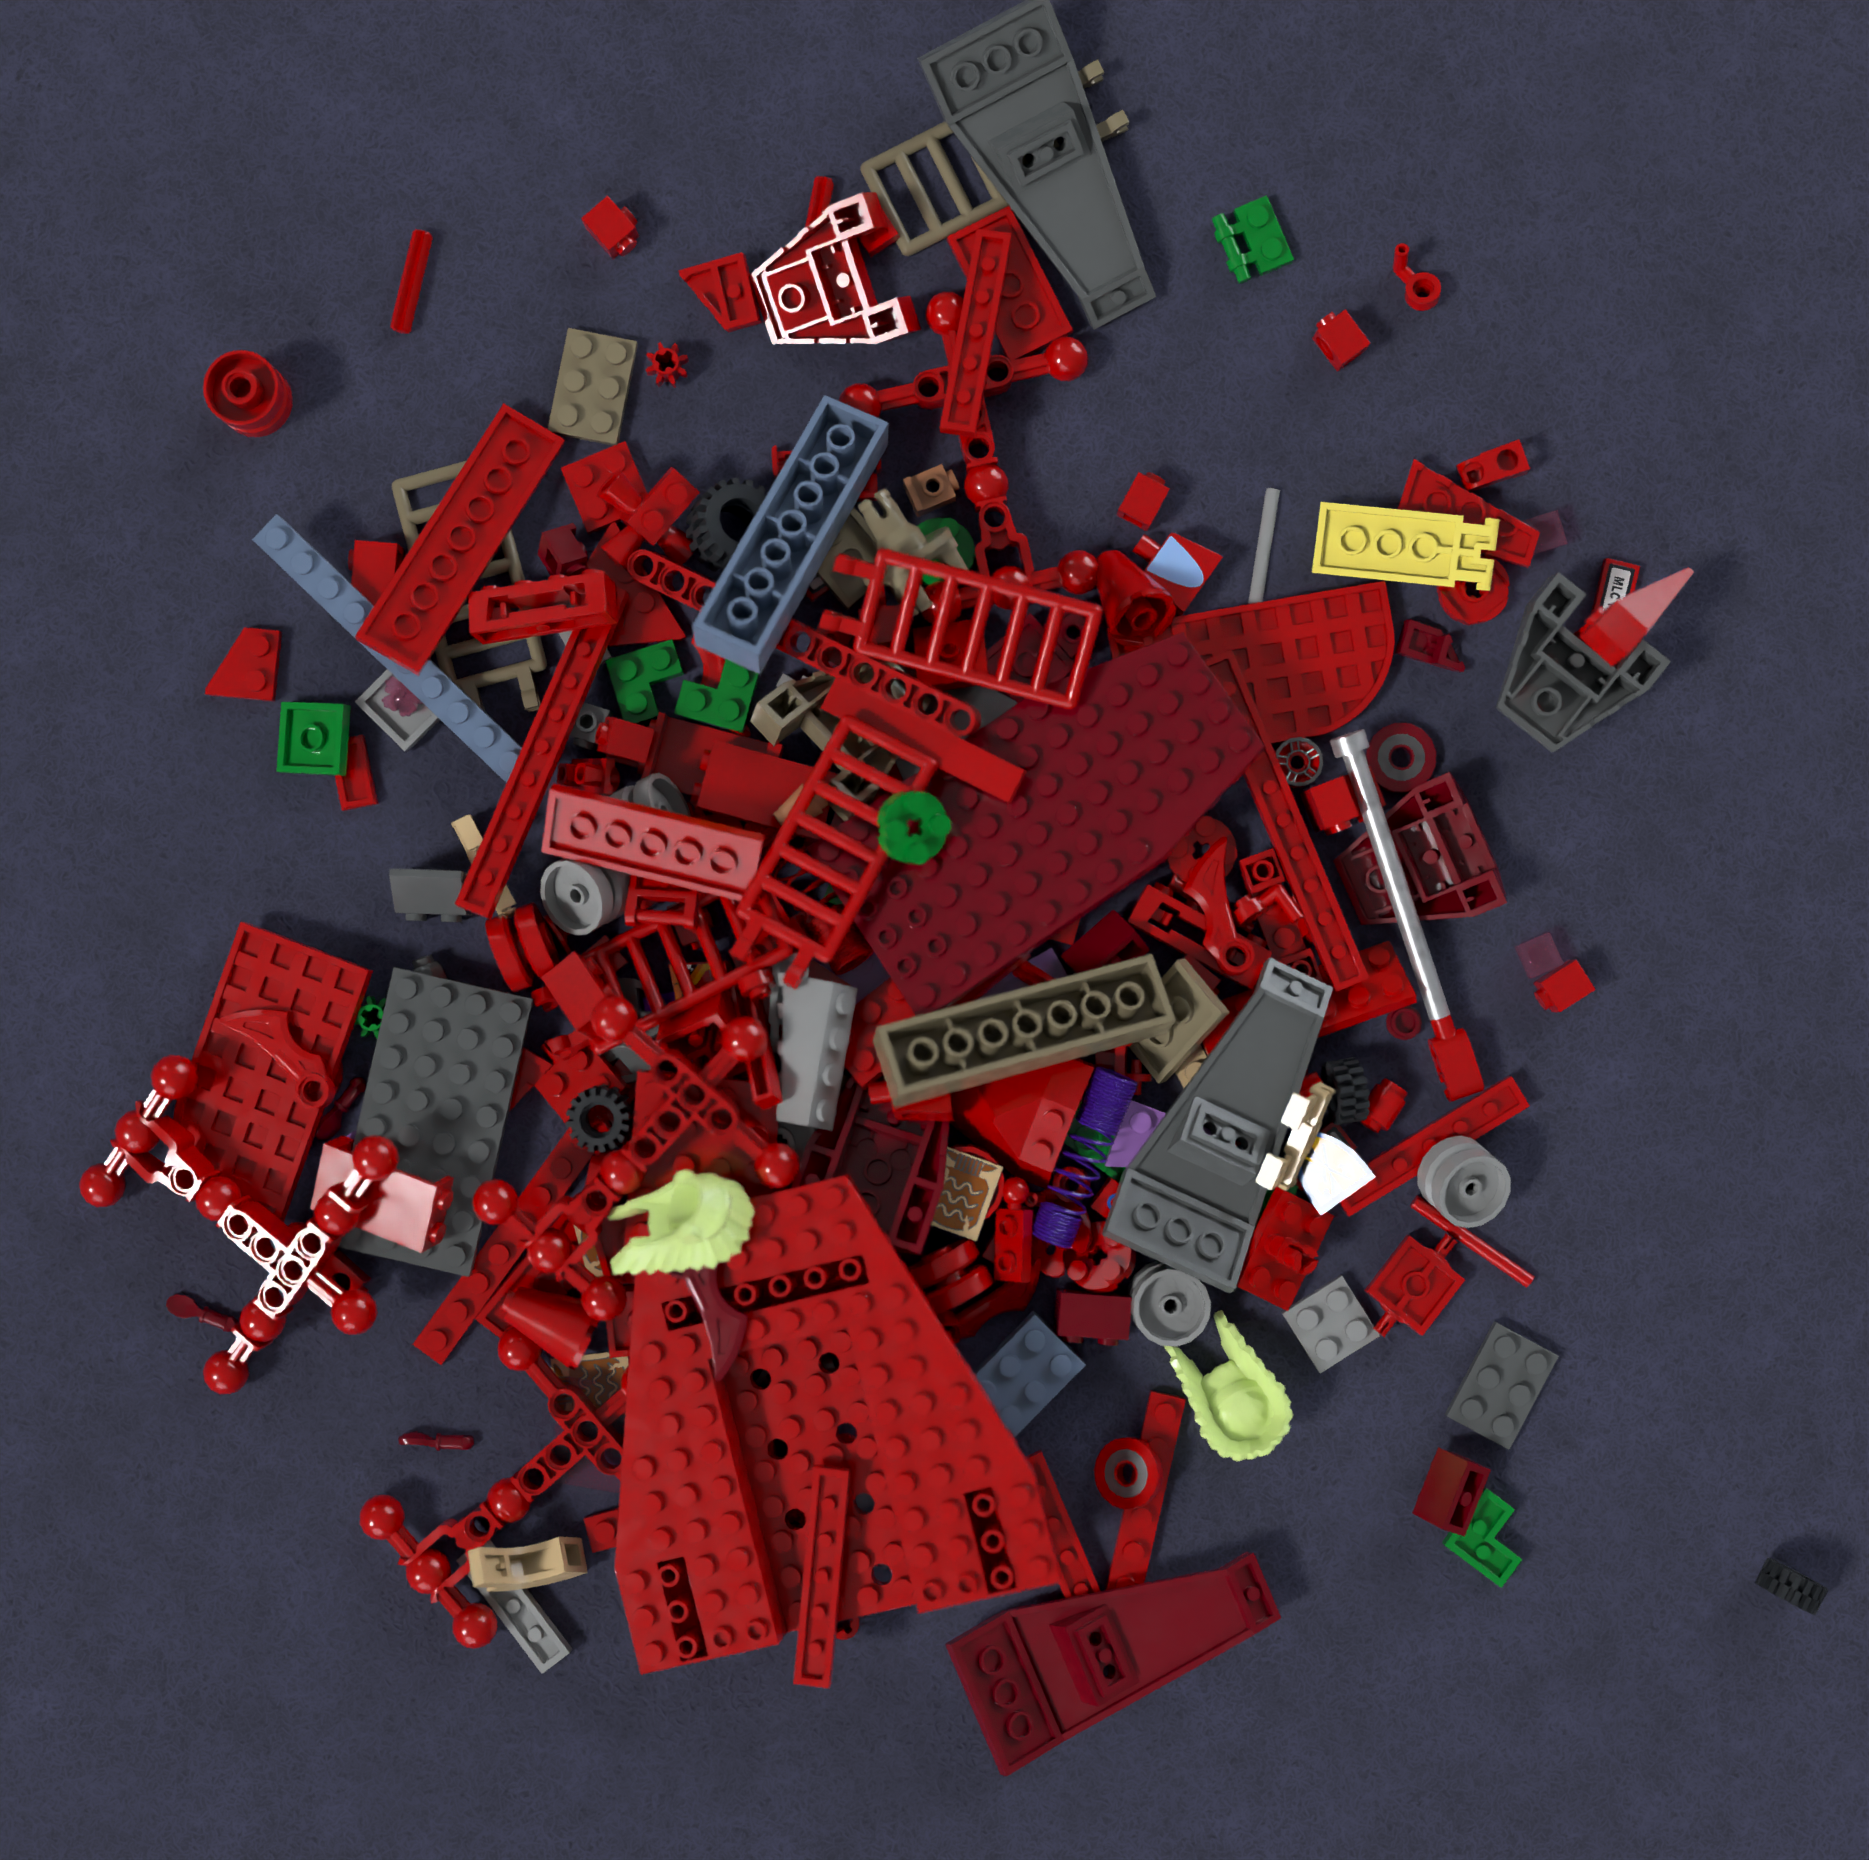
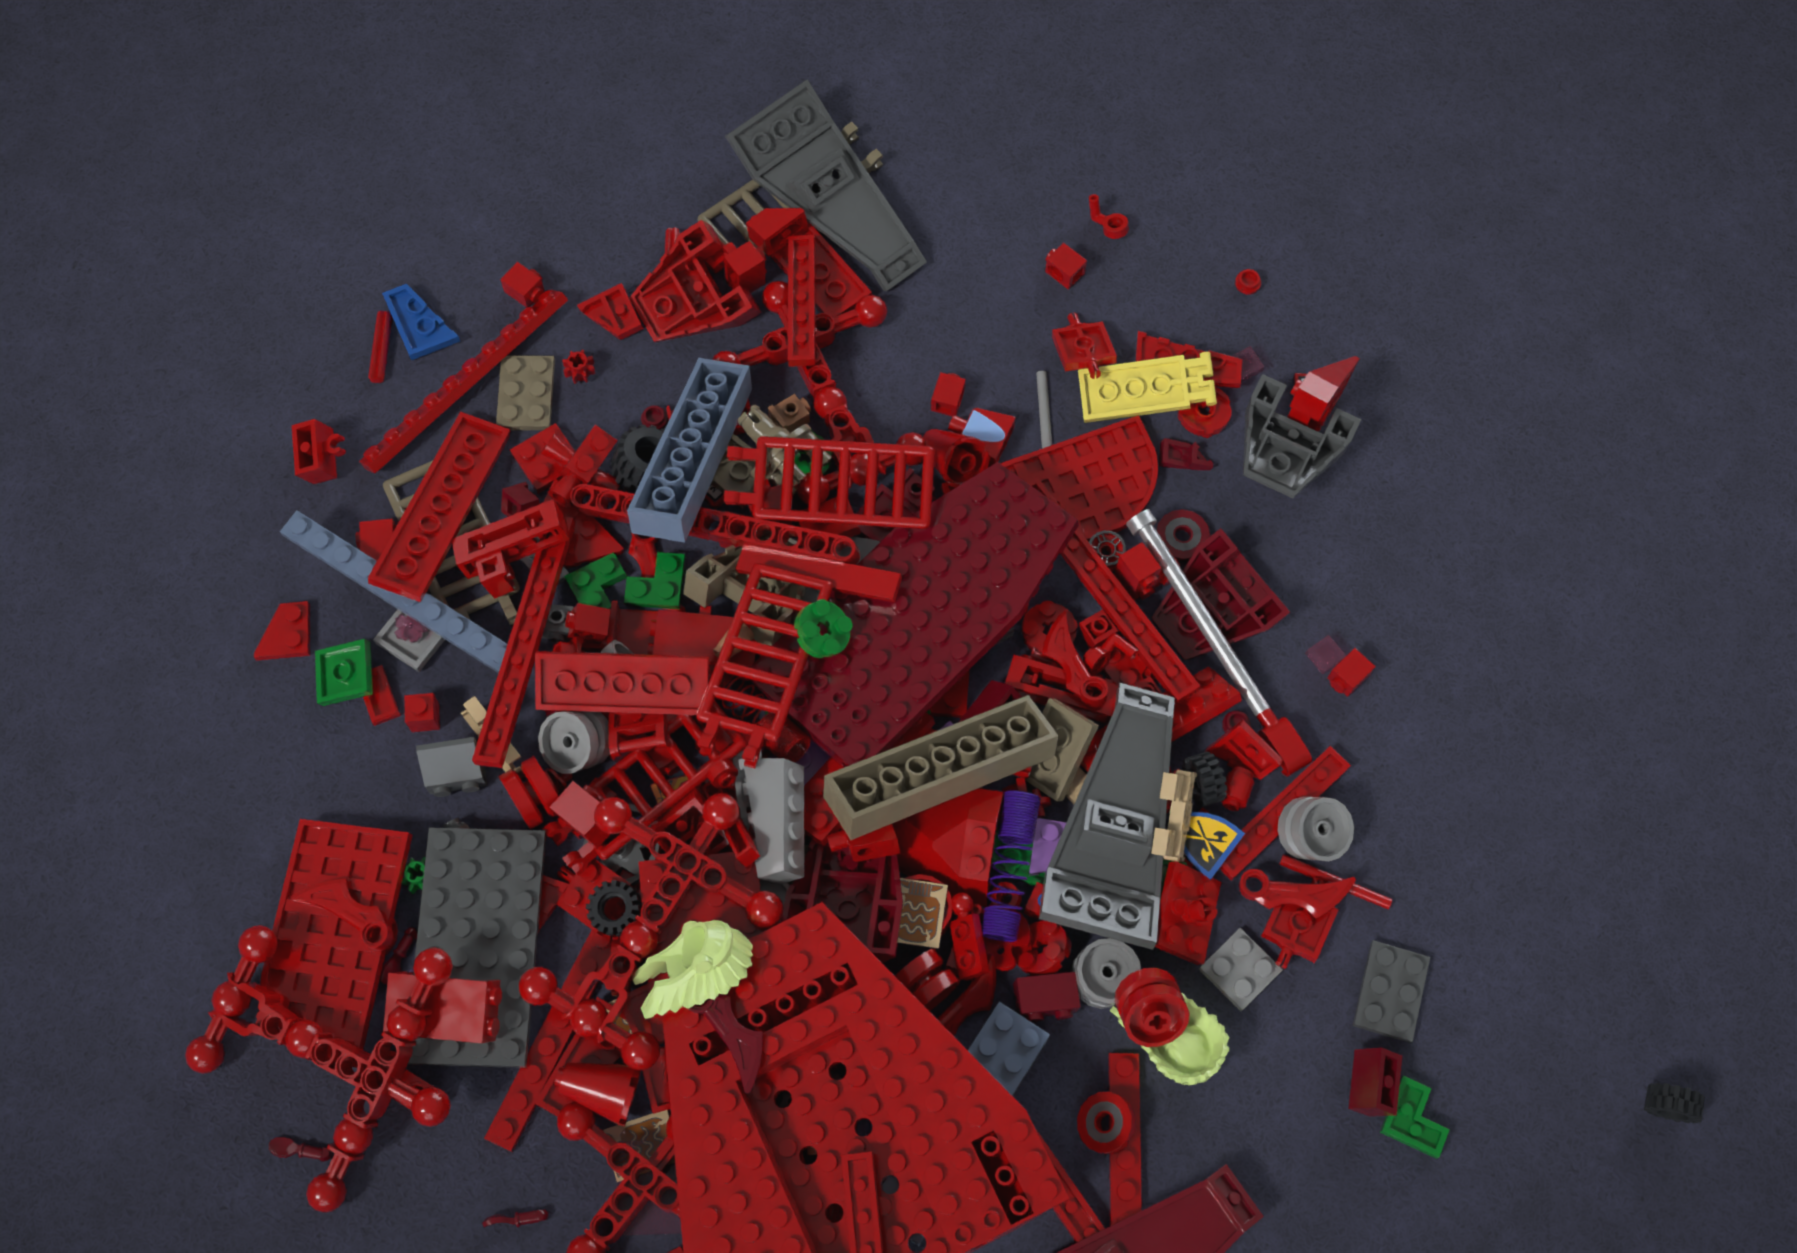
camera: 10 degrees left, 20 degrees down
(247, 393) = (264, 437): red wheel -> none
(309, 425) = (315, 451): none -> red brick
(404, 811) = (422, 712): none -> red brick
(463, 257) = (417, 323): none -> blue wing
(515, 355) = (458, 384): none -> red plate
(523, 651) = (496, 574): none -> red brick
(754, 458) = (654, 416): none -> dark red plate
(908, 265) = (744, 266): none -> red brick
(961, 210) = (773, 226): none -> red slope
(1210, 1365) = (1151, 1007): none -> red wheel
(1262, 235) = (992, 212): green plate -> none
(1336, 467) = (1084, 346): none -> red plate
(1404, 1063) = (1245, 749): none -> red wing
(1440, 1263) = (1313, 897): none -> red piece
(1494, 466) = (1197, 326): red leg -> none
(1580, 410) = (1248, 281): none -> red plate

